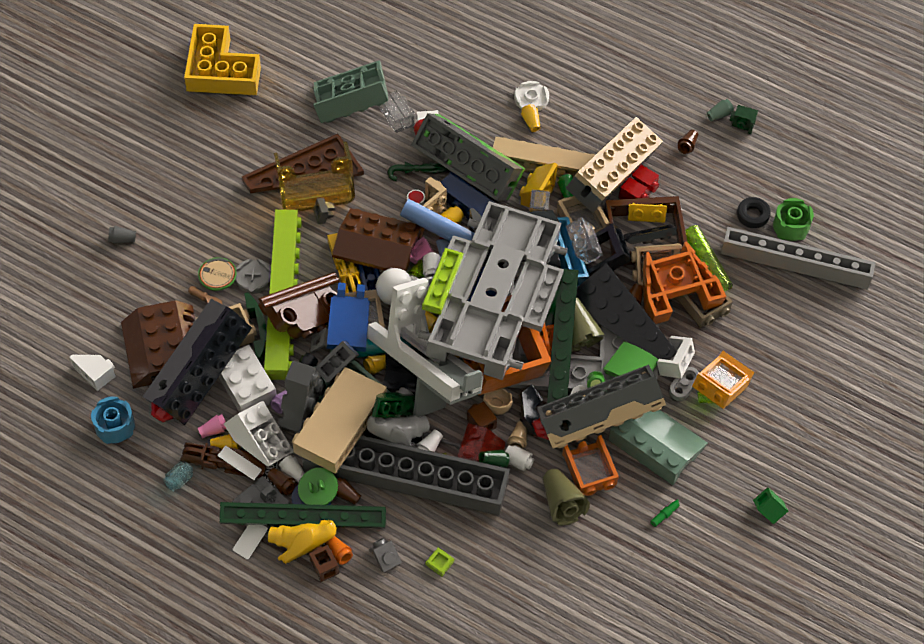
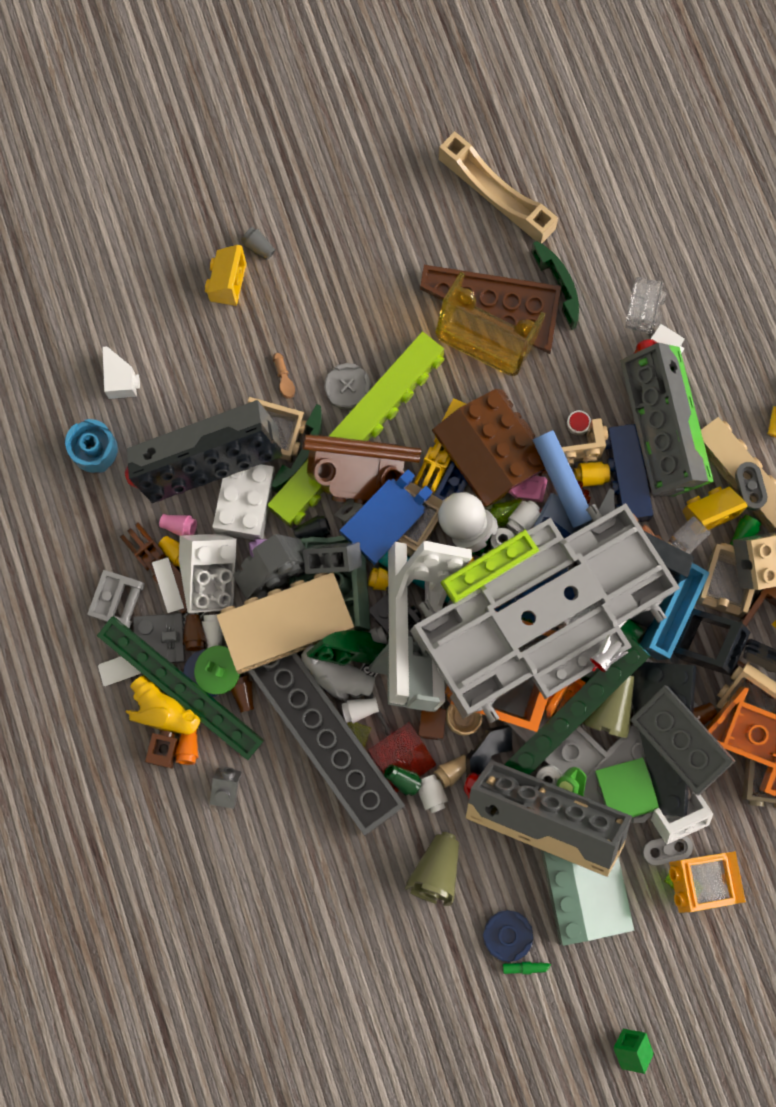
camera: 45 degrees right, 20 degrees up
(117, 263) = (226, 275): none -> yellow slope
(152, 336) = (199, 387): reddish brown slope -> none
(178, 475) = (106, 551): clear light blue brick -> none
(203, 500) = (109, 595): none -> light grey plate
(214, 69) = (497, 112): yellow brick -> none
(217, 274) = (312, 359): piece -> none
(283, 109) = (469, 166): none -> tan arch
(315, 125) = (547, 259): none -> dark green slope
(323, 210) = (473, 366): dark grey tile -> none
(350, 92) = (613, 246): sand green piece -> none
(407, 168) = (600, 381): dark green piece -> none
(439, 562) = (270, 836): lime tile -> none
(549, 156) = (753, 486): none -> dark grey plate
(555, 283) = (604, 657): none -> flat silver piece
(584, 240) = (699, 617): clear piece -> none
(591, 467) = (492, 863): window -> none
(637, 307) = (682, 740): none -> dark grey tile
(638, 503) = (508, 935): none -> dark blue tile

